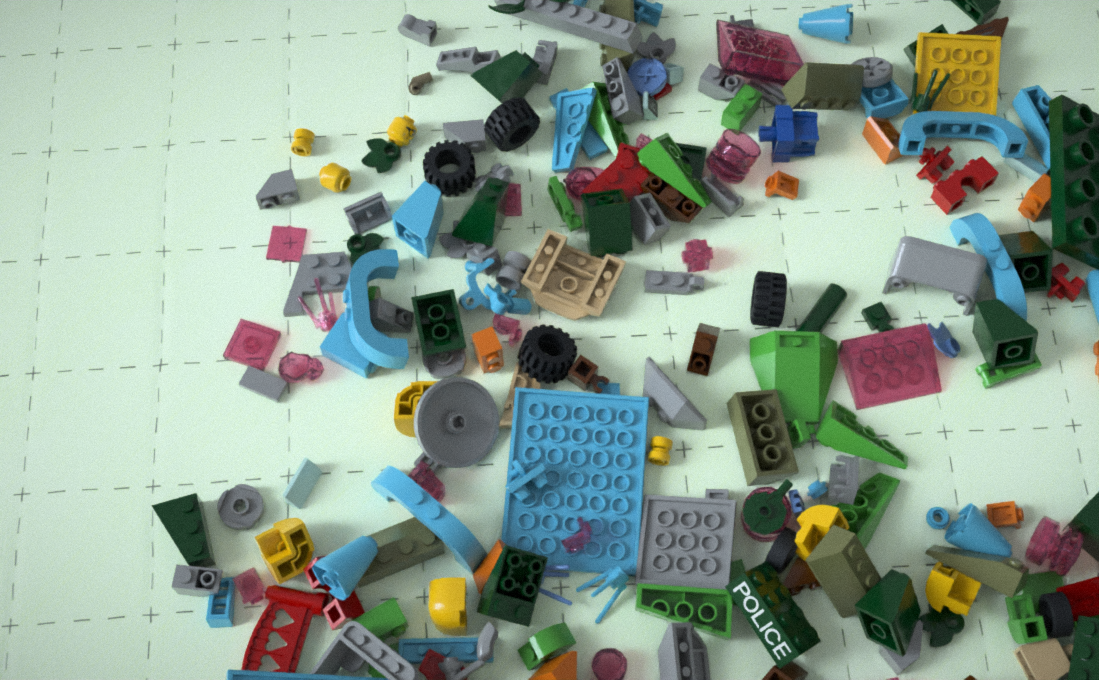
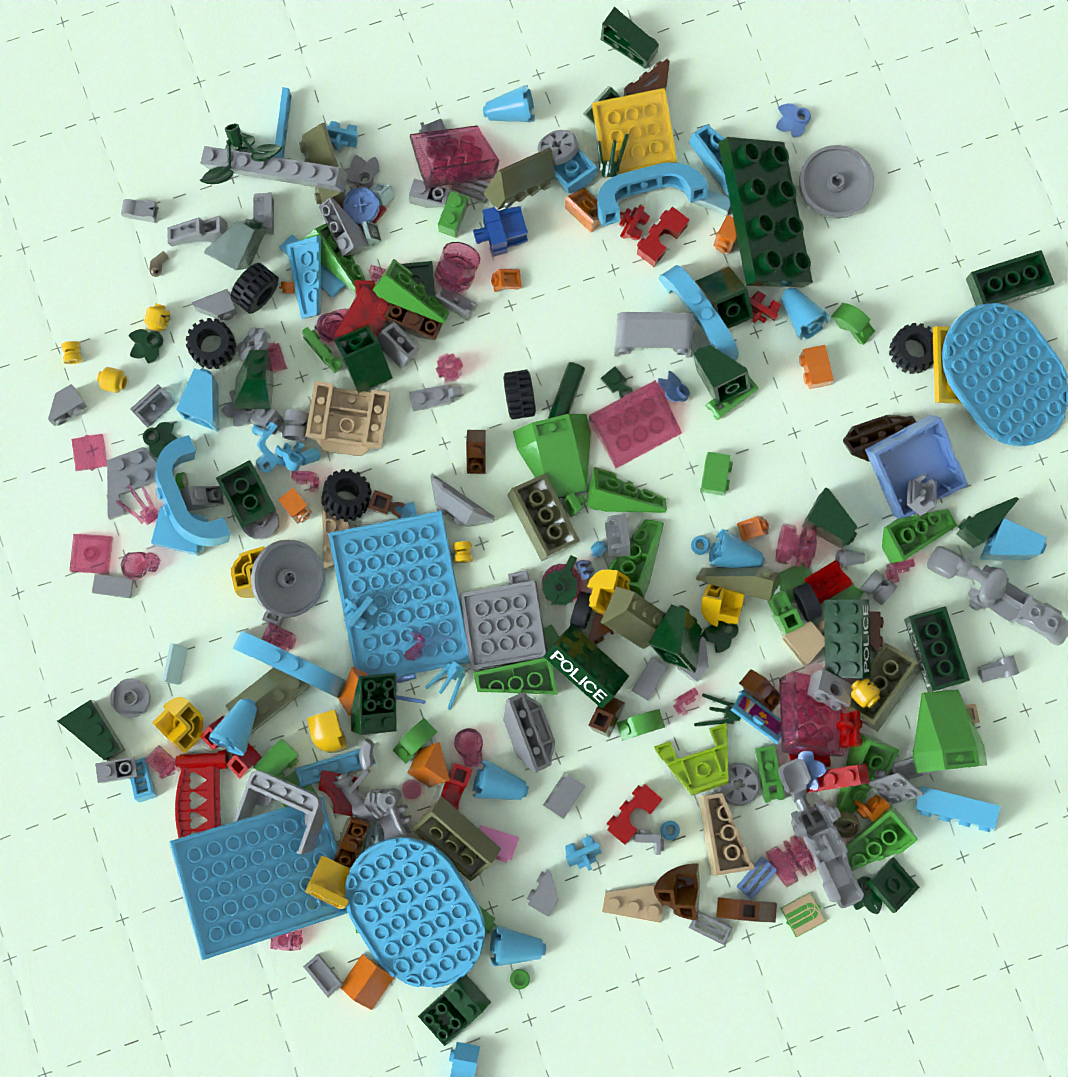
camera: 20 degrees left, 15 degrees up
(546, 136) = (288, 287): none -> orange plate
(843, 654) = (649, 679): none -> light grey tile
(973, 443) = (715, 473): none -> bright green brick

